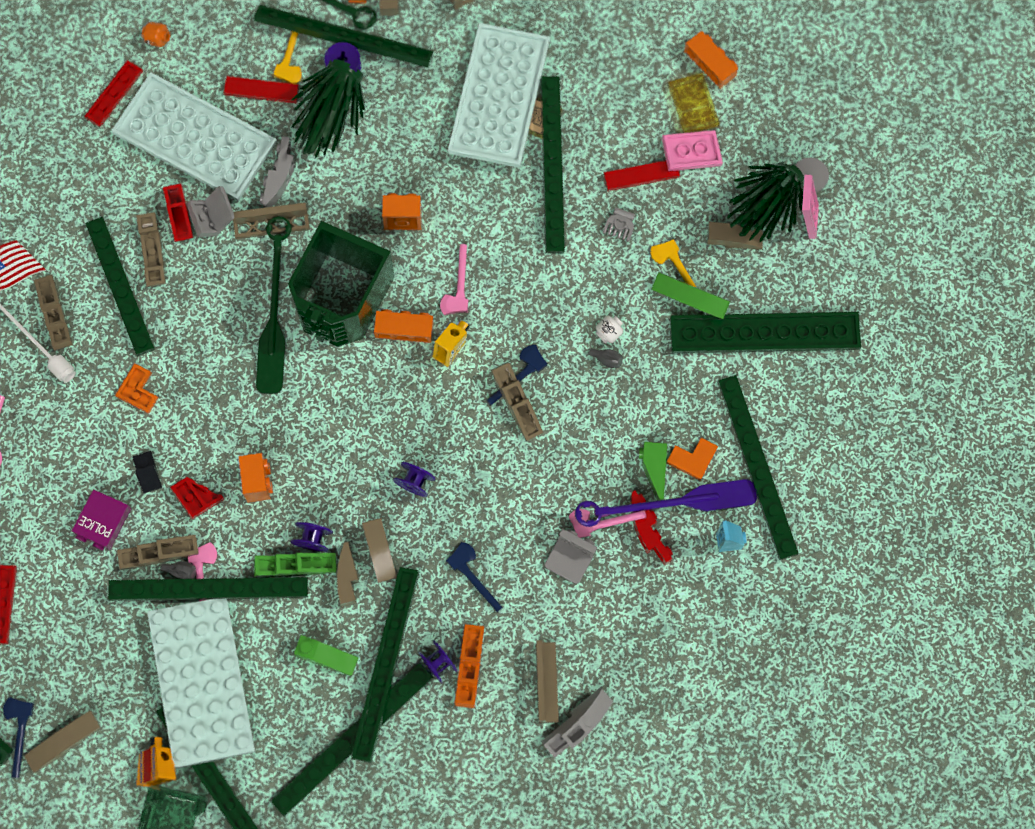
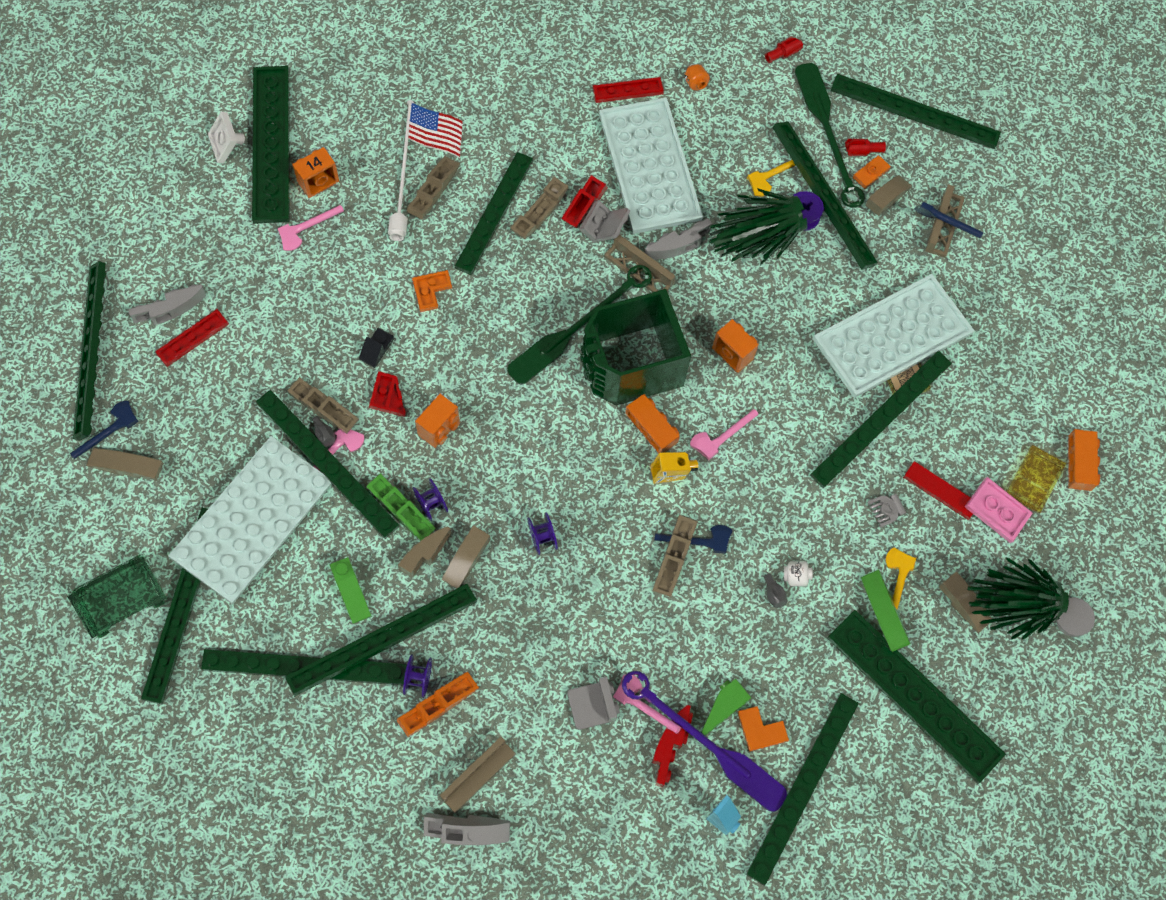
camera: 45 degrees right, 5 degrees down
(101, 520) = (311, 348): magenta brick -> none
(155, 765) = (160, 541): light orange torso -> none
(260, 89) = (727, 175): red tile -> none
(459, 560) = (512, 622): dark blue piece -> none
(810, 206) = (1048, 636): bright pink tile -> none

